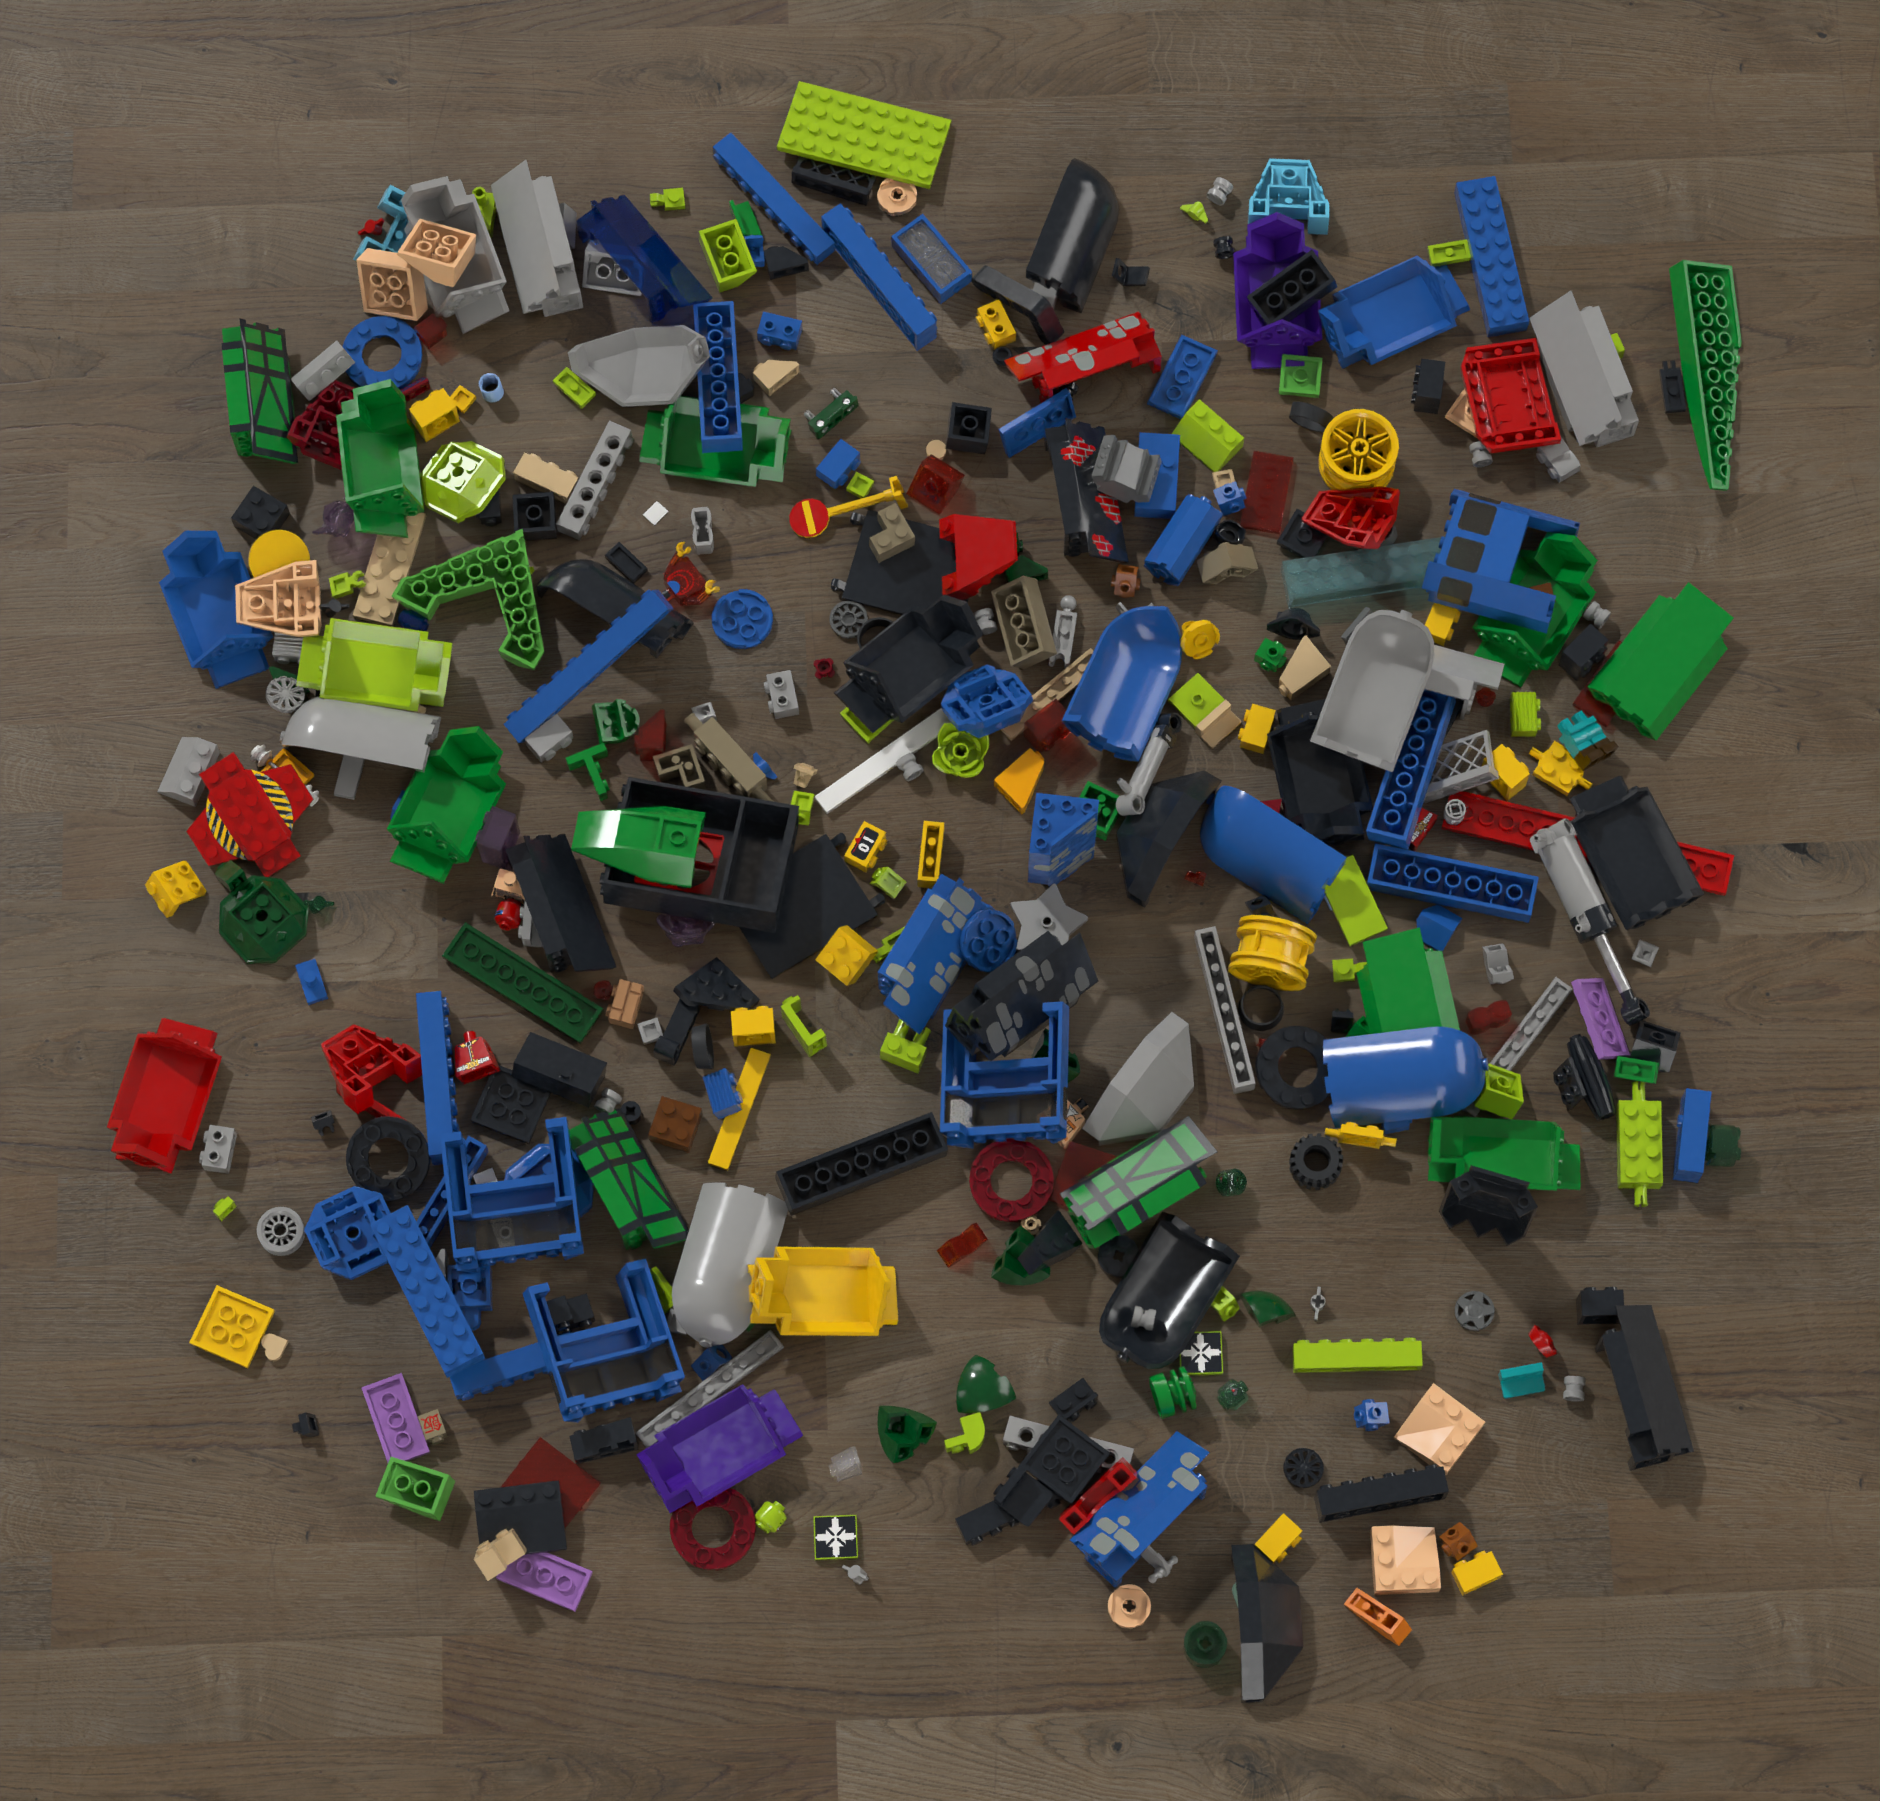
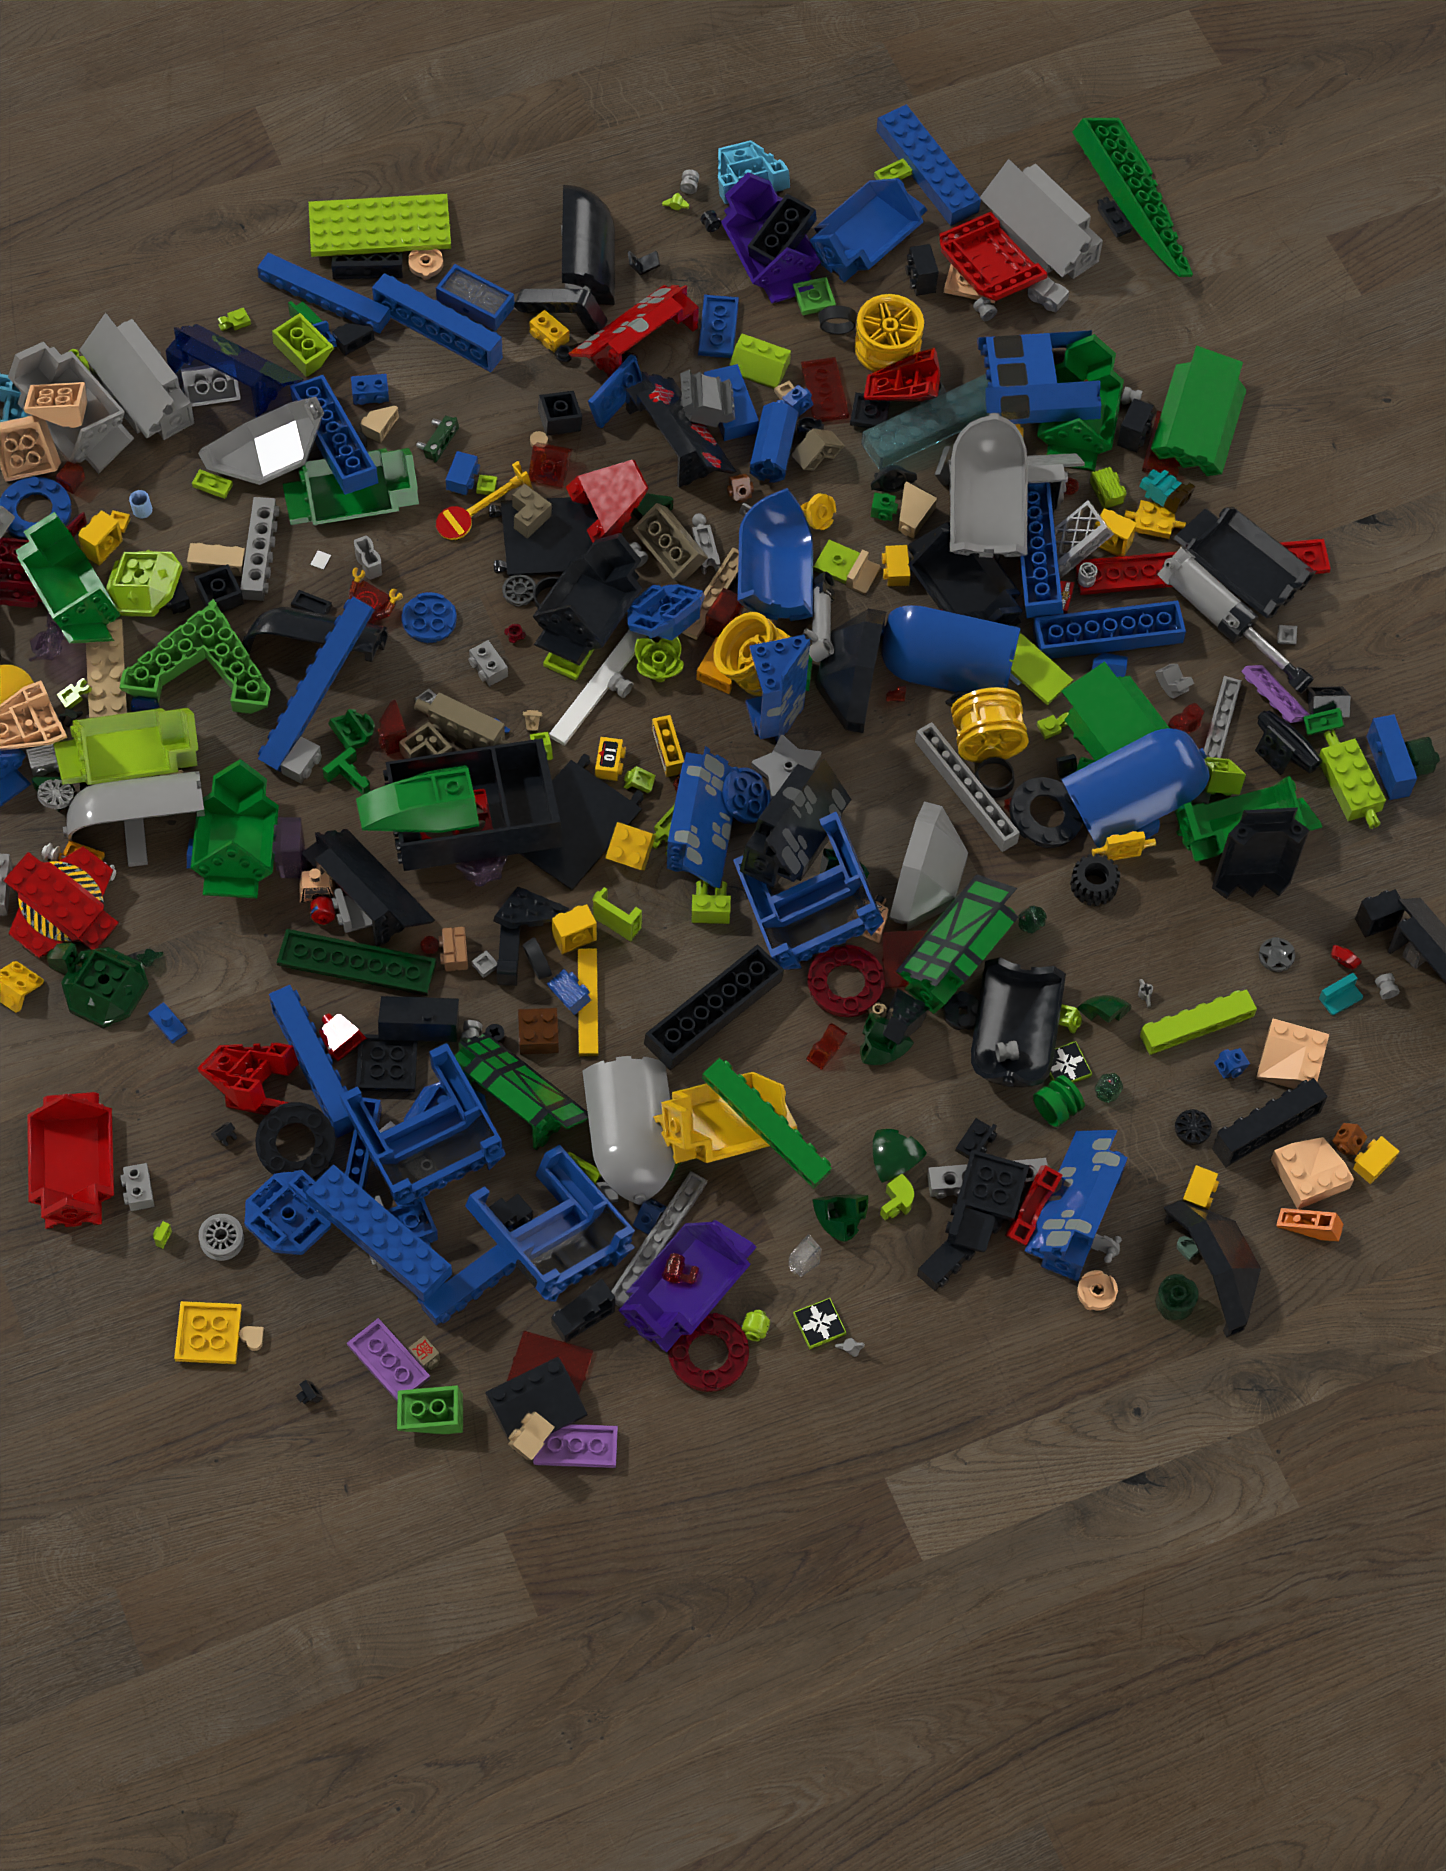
camera: 25 degrees left, 10 degrees down
(712, 1429) = (674, 1270): none -> clear red piece
(859, 1312) = (766, 1123): none -> green brick
(1054, 770) = (733, 652): none -> yellow wheel

